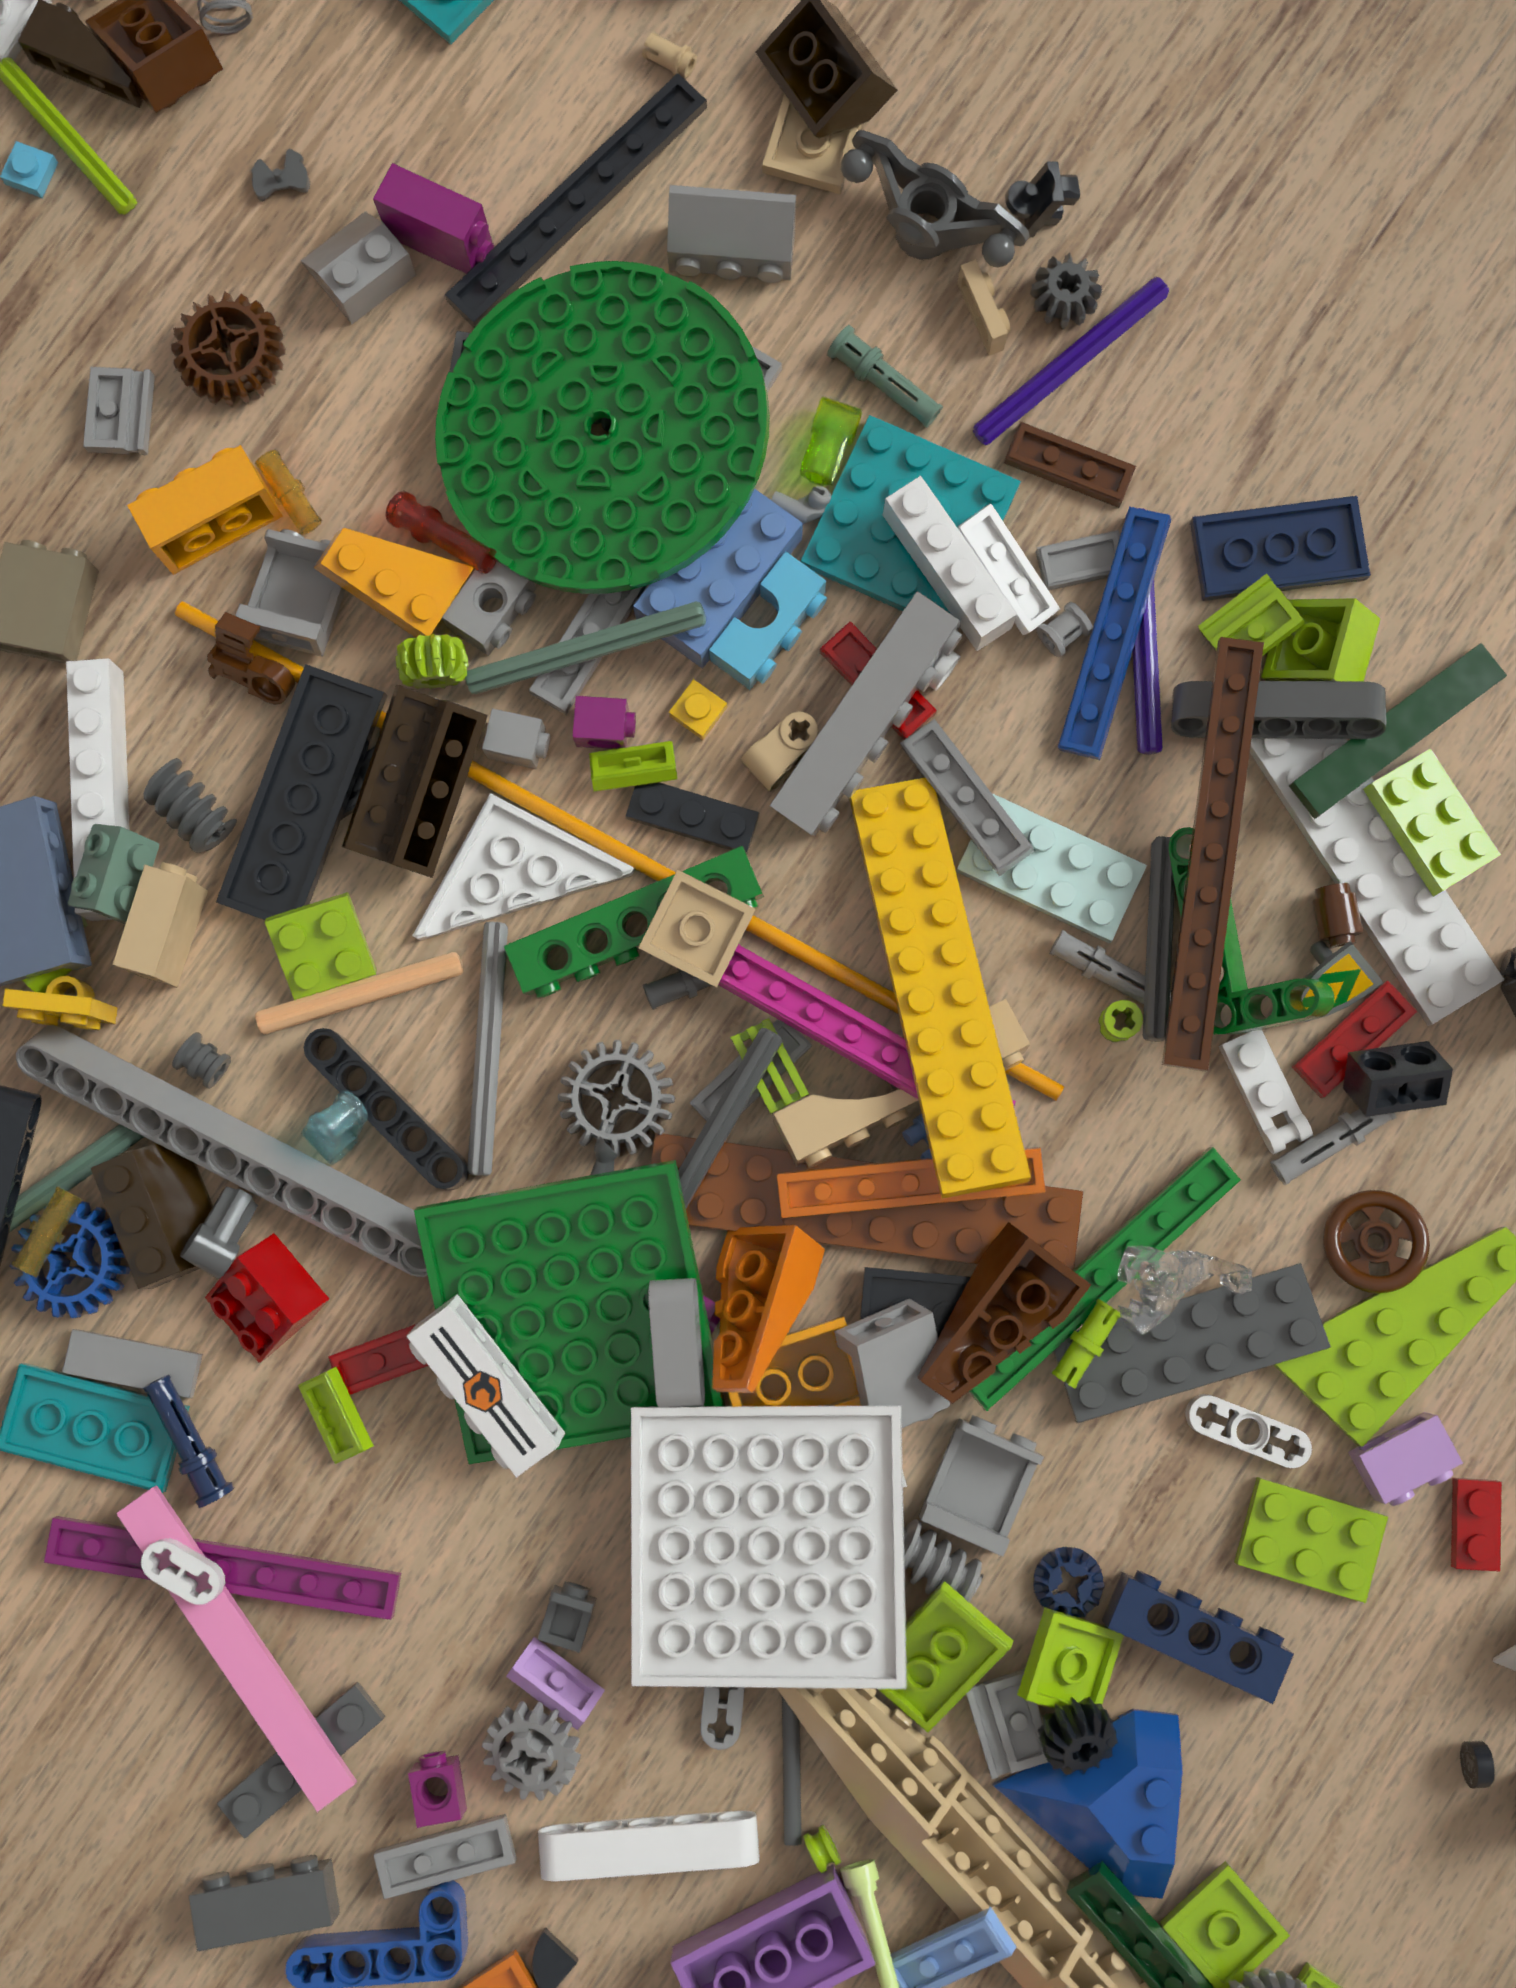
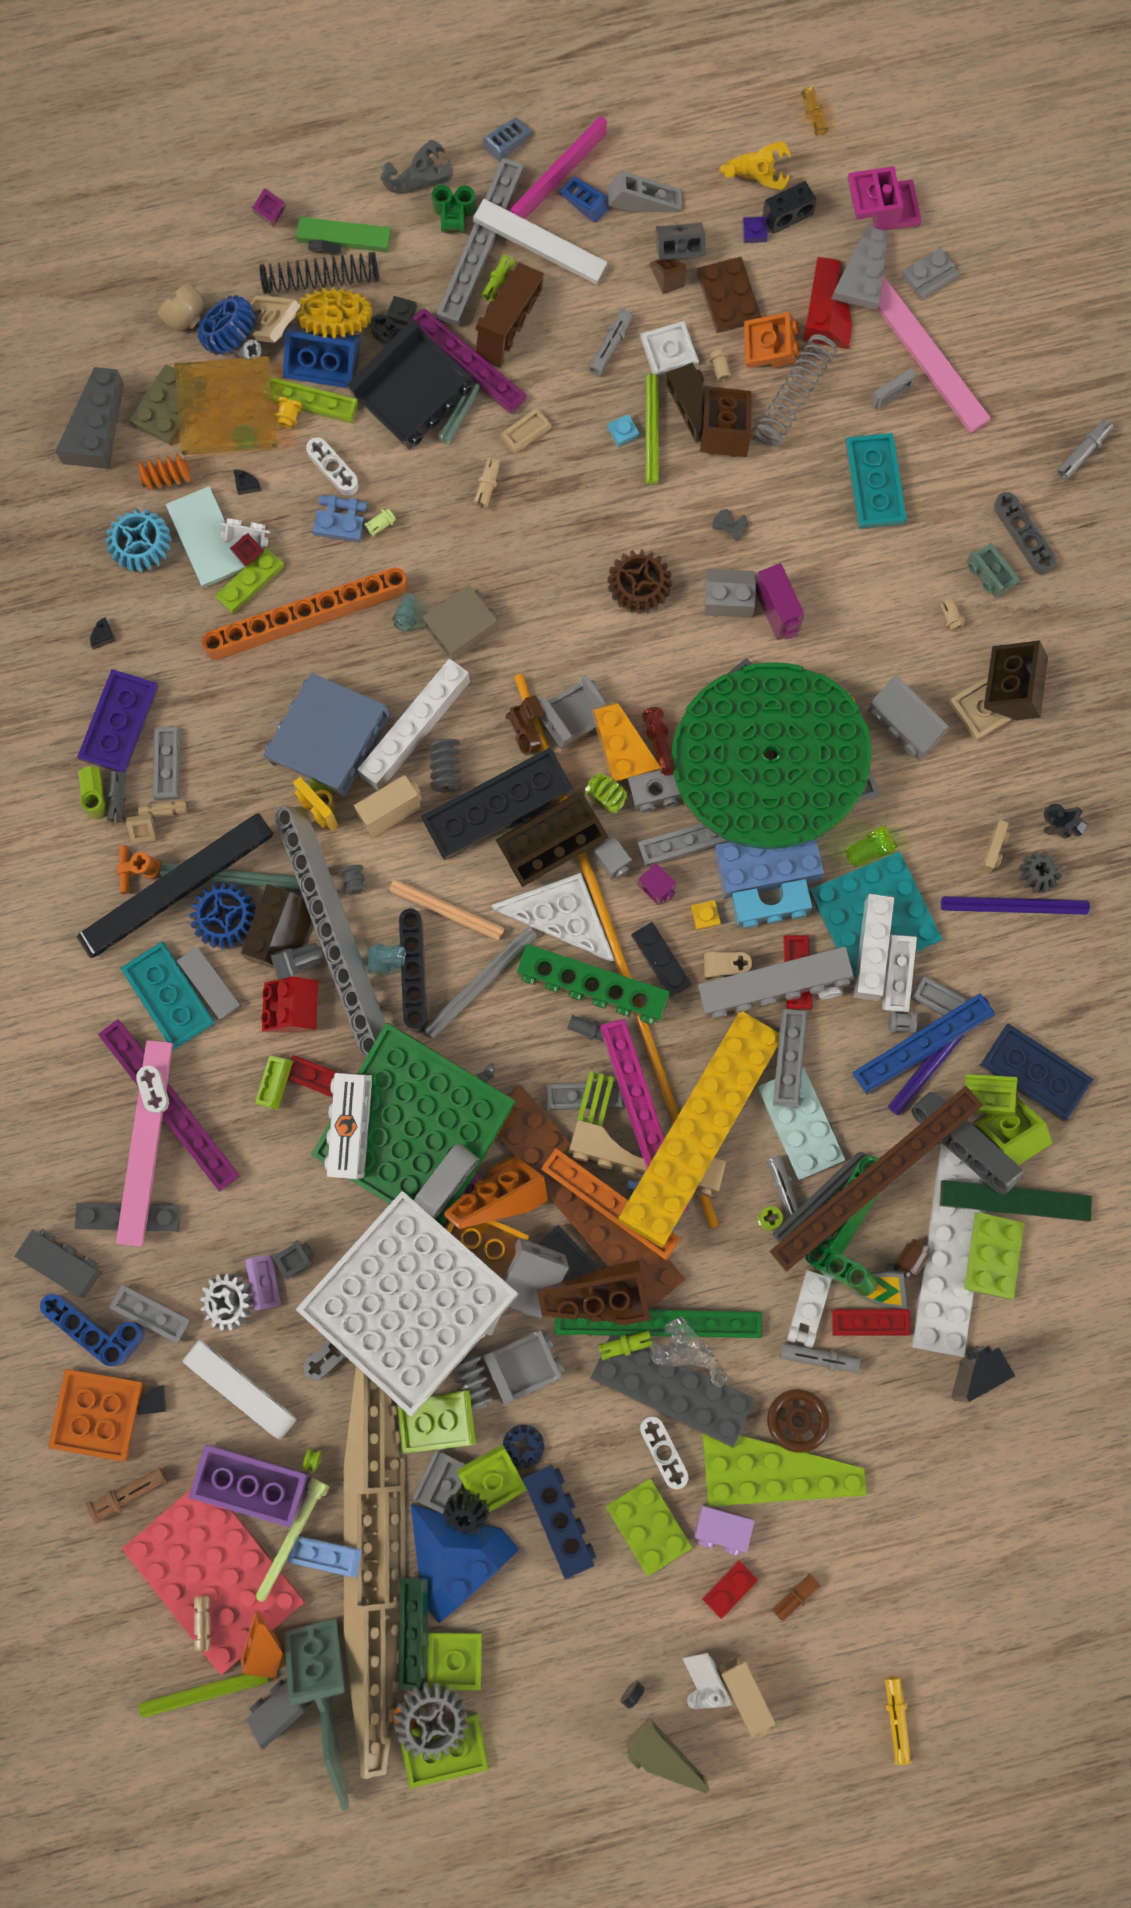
camera: 40 degrees right, 5 degrees down
(46, 1232) = (224, 894): clear yellow pin -> none
(111, 871) = (388, 765): sand green bracket -> none
(118, 410) = (568, 568): light grey plate -> none
(197, 1459) = (199, 1048): dark blue pin -> none
(204, 509) = (567, 643): light orange brick -> none
(288, 492) = (610, 665): clear yellow pin -> none
(320, 946) = (448, 874): lime plate -> none
(431, 1808) = (162, 1285): magenta brick -> none
(577, 200) = (852, 645): black plate -> none
(586, 647) = (678, 845): sand green axle -> none
(628, 1063) = (526, 1049): light grey gear -> none
(632, 766) = (653, 915): lime tile -> none
(697, 928) = (616, 1009): tan plate -> none
(727, 1112) = (557, 1102): dark grey axle -> none
(791, 1776) = (327, 1417): dark grey bar -> none
(806, 508) = (831, 867): light grey arm -> none
(865, 367) = (922, 827): sand green pin -> none
(934, 192) = (1016, 775): dark grey piece -> none
(1069, 464) = (972, 951): reddish brown tile -> none
(1397, 1078) = (872, 1355): black brick -> none

